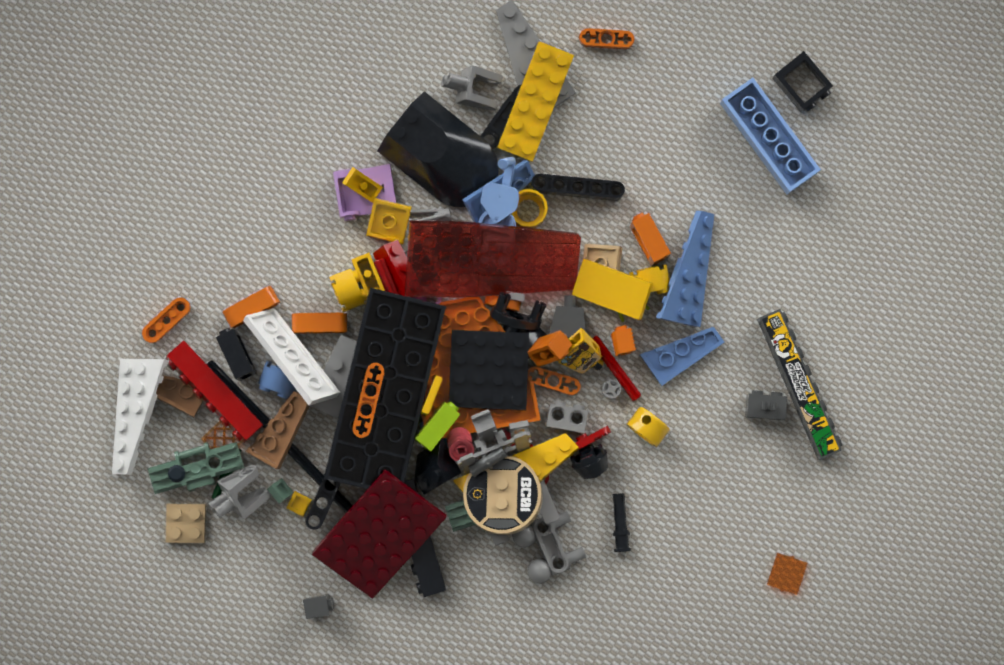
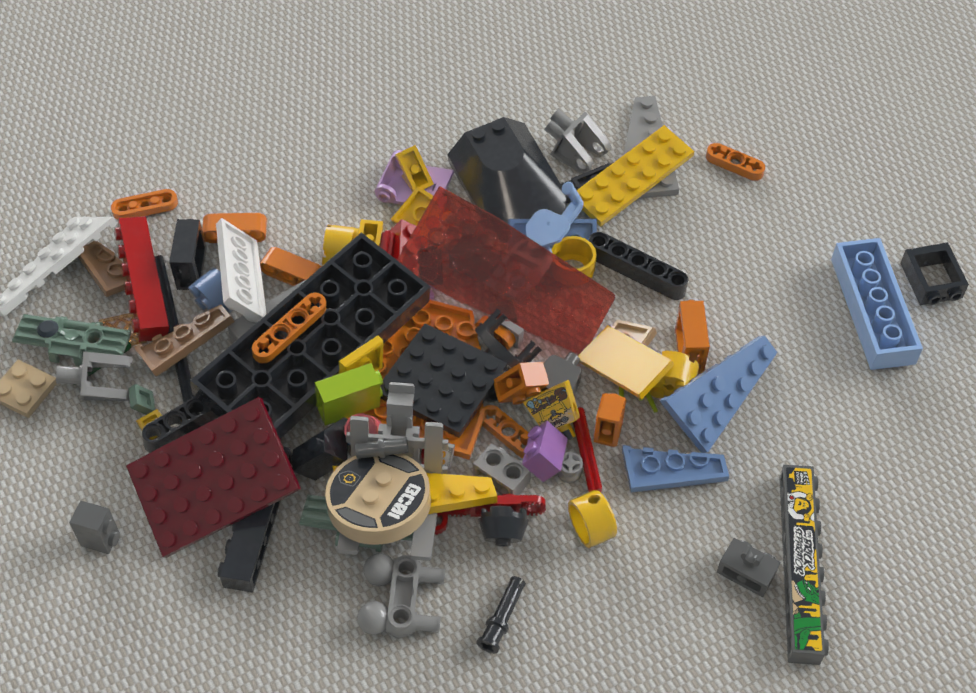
camera: 30 degrees right, 30 degrees down
(591, 391) = (544, 451): none -> medium lavender brick

